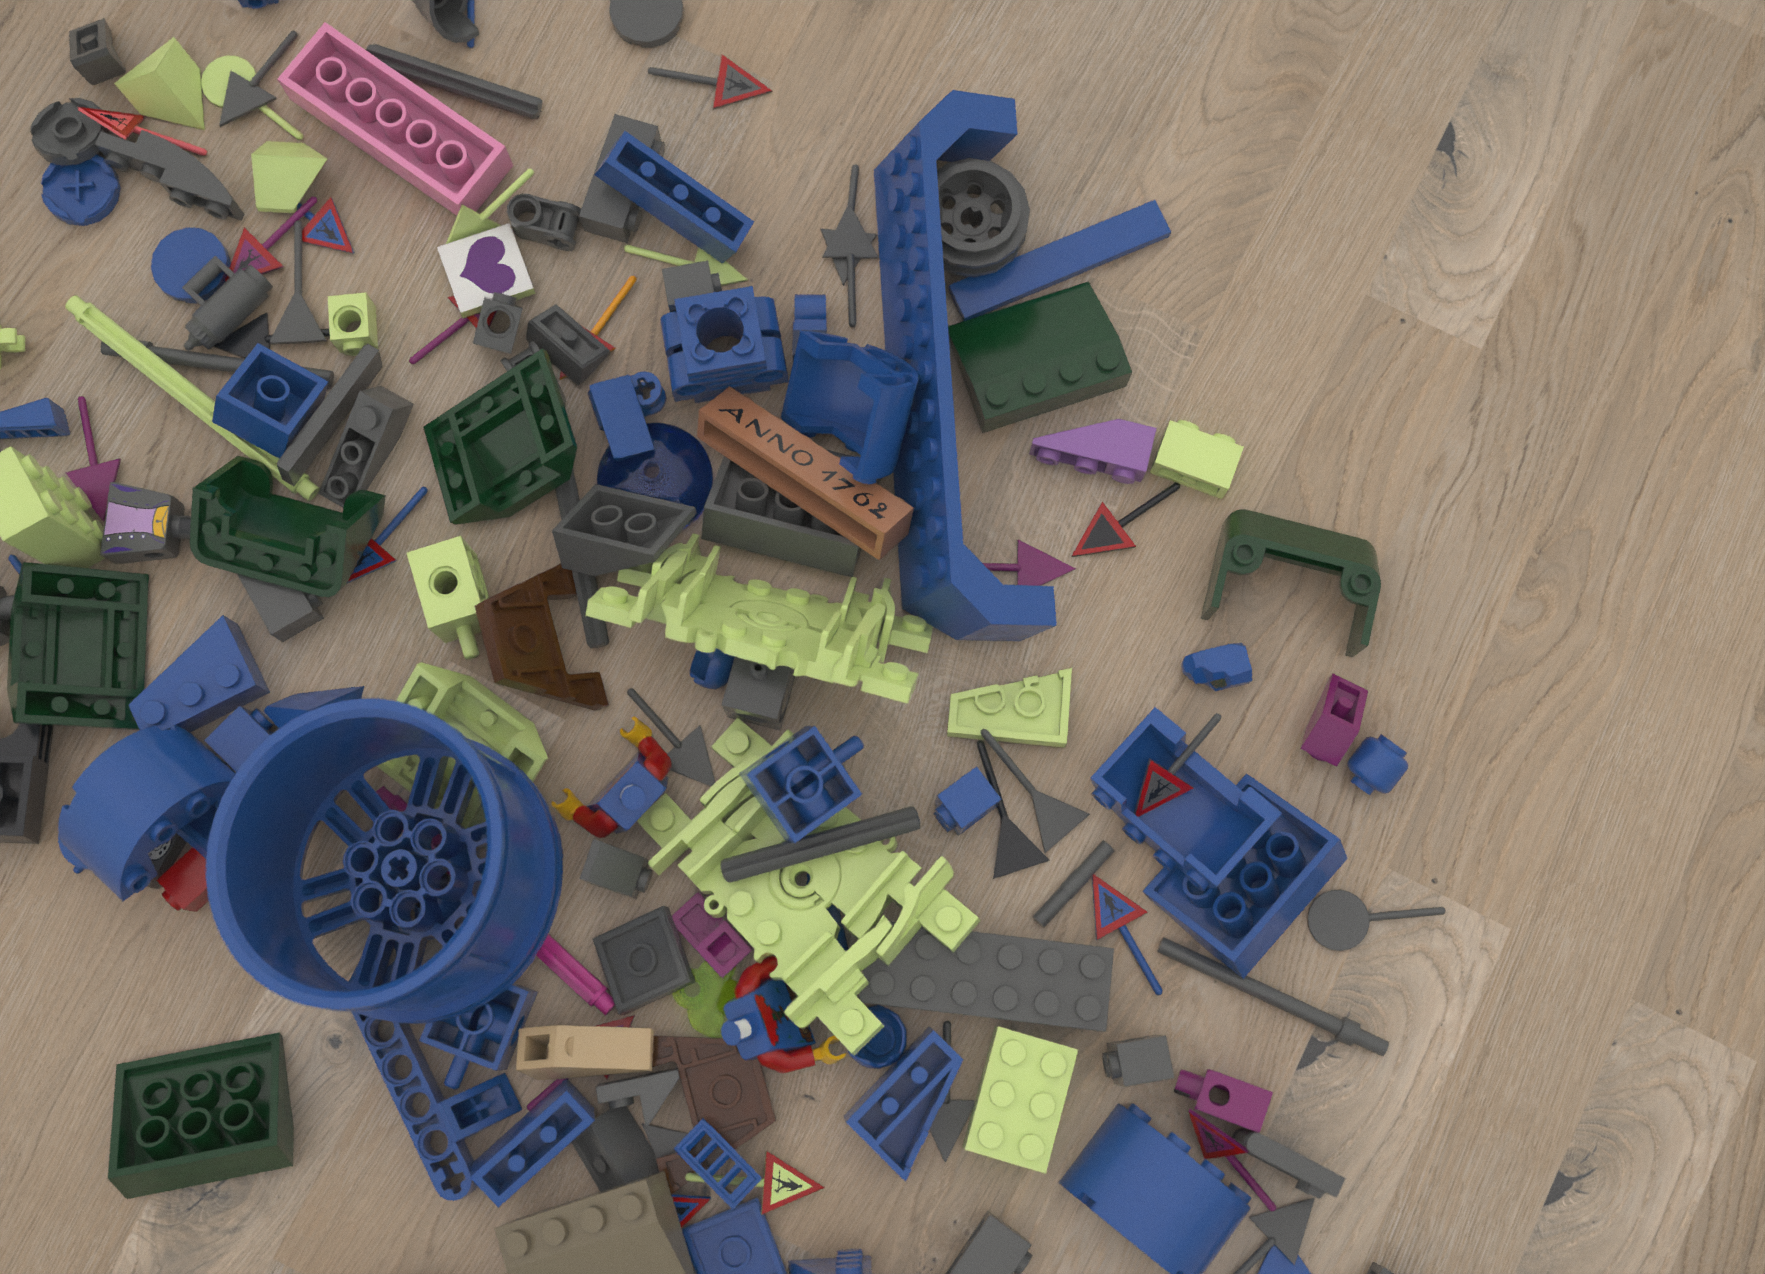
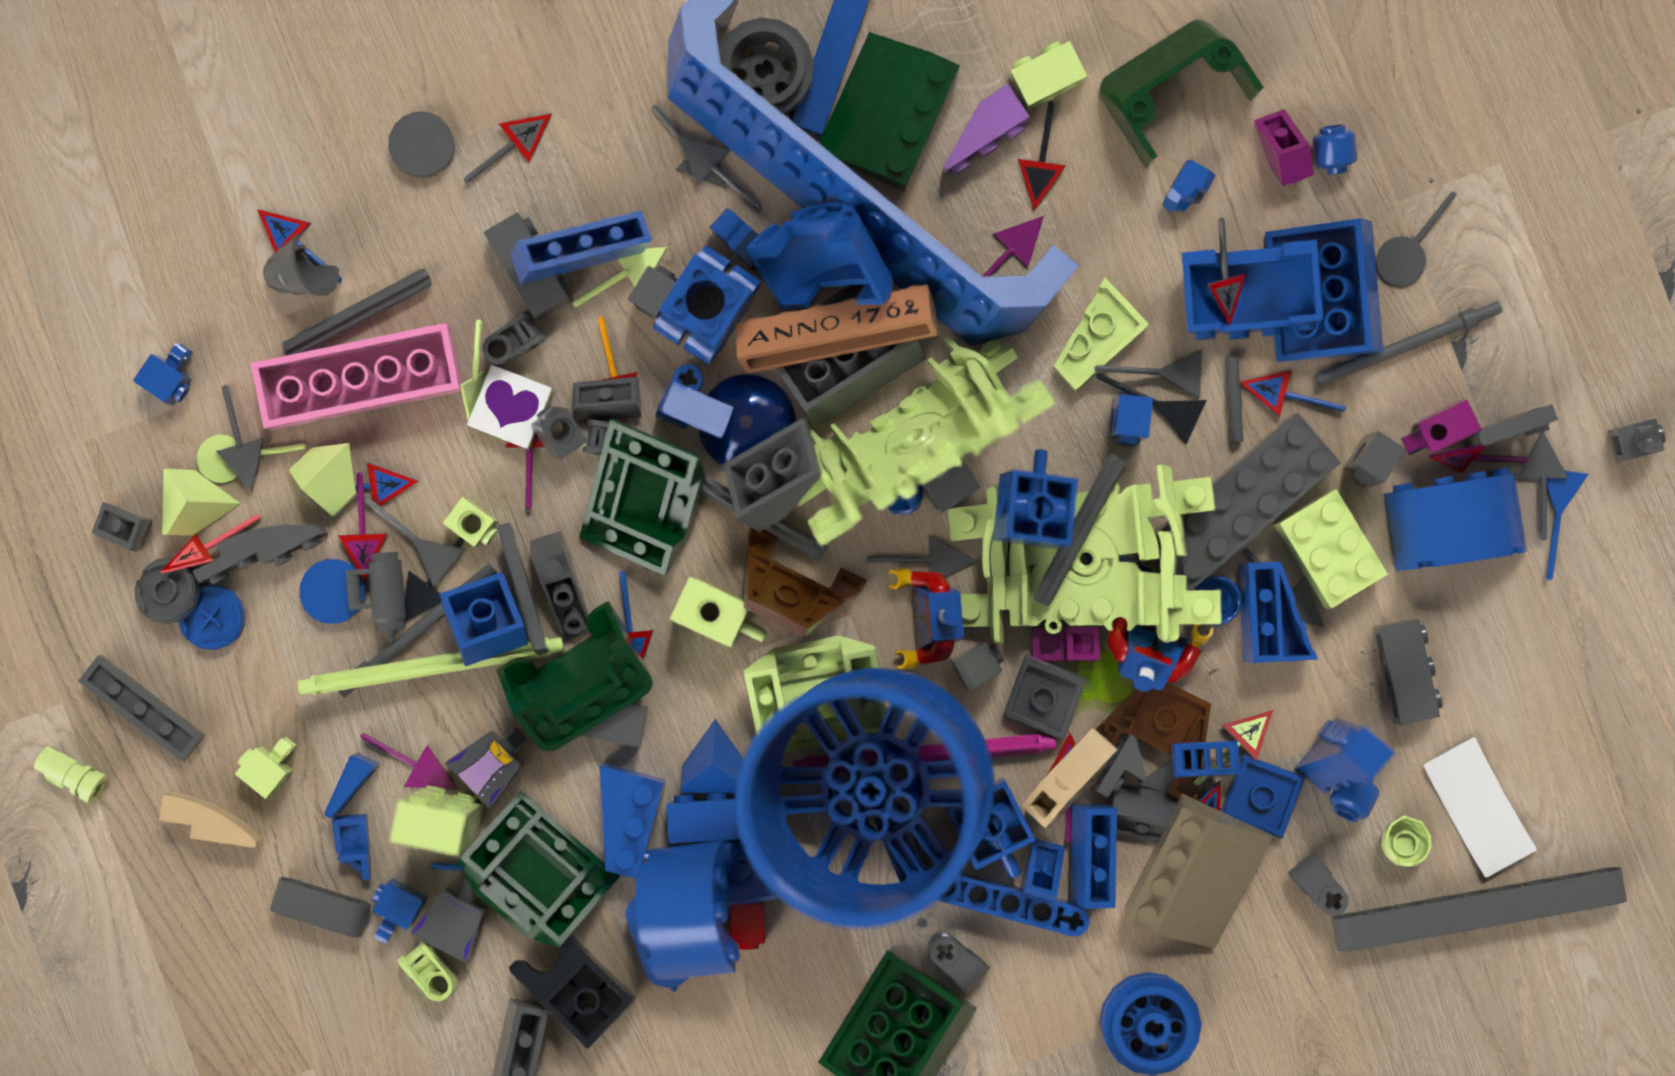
camera: 45 degrees left, 10 degrees up
(321, 1110) = (960, 964): none -> dark grey piece

